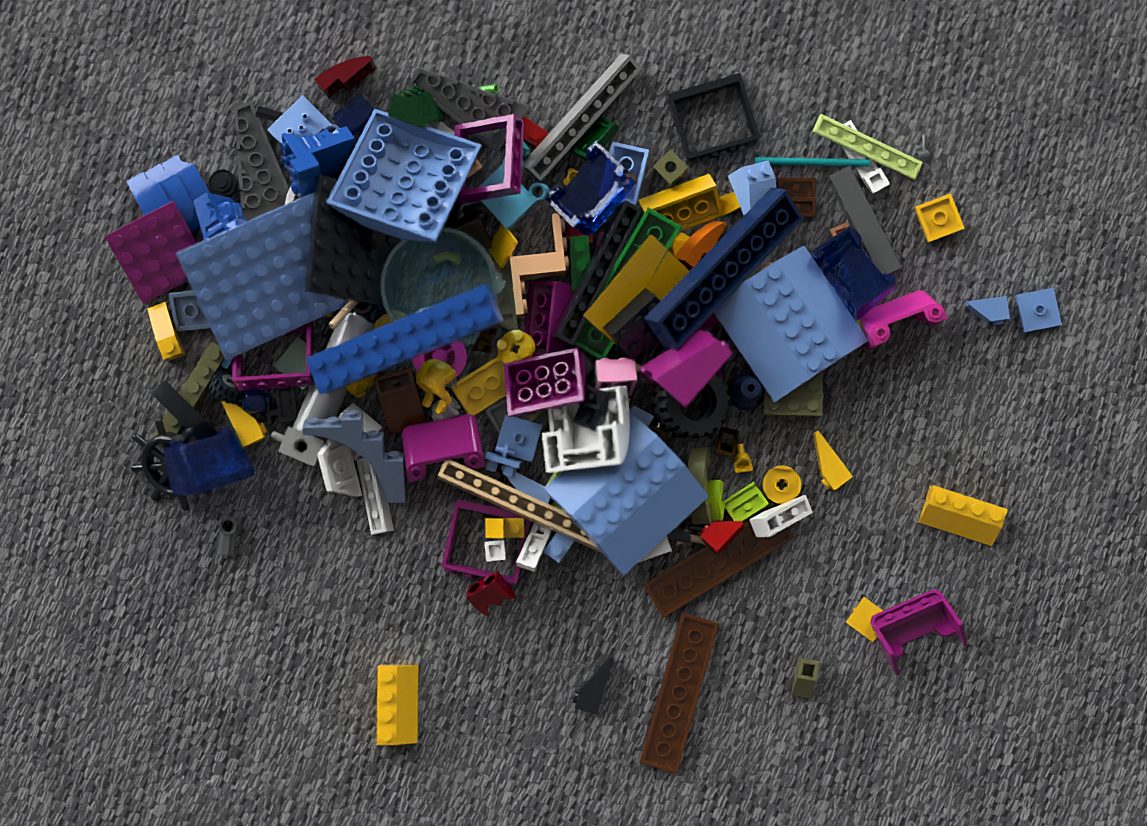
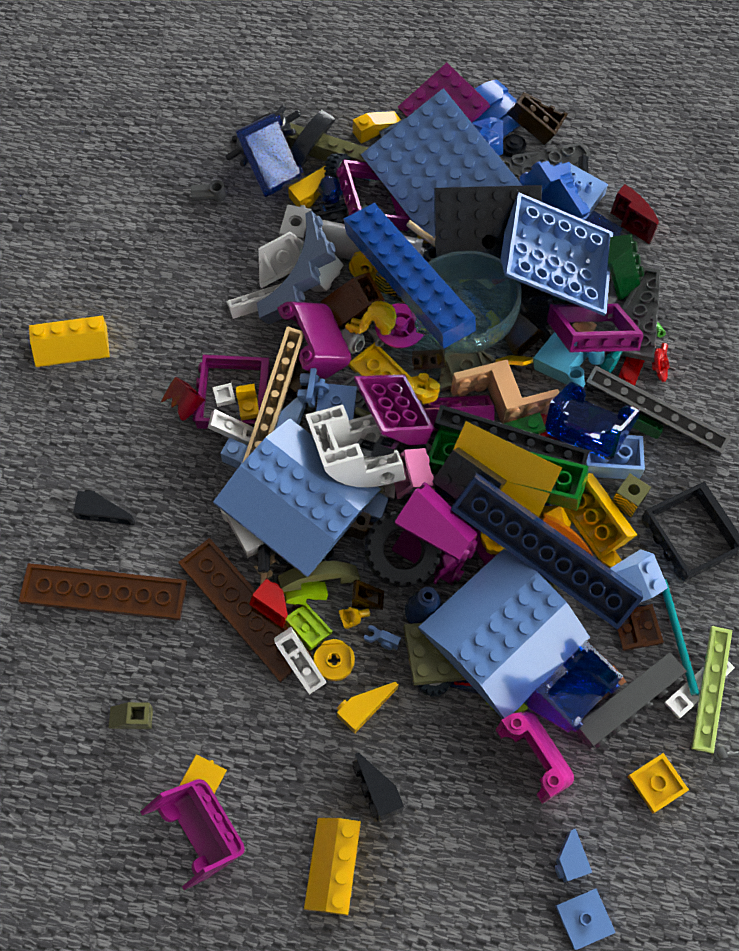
camera: 80 degrees right, 20 degrees down
(198, 149) = (536, 117): none -> dark brown wedge
(528, 97) = (661, 362): none -> red piece
(772, 431) = (386, 639): none -> medium blue plate
(915, 461) = (381, 791): none -> black slope

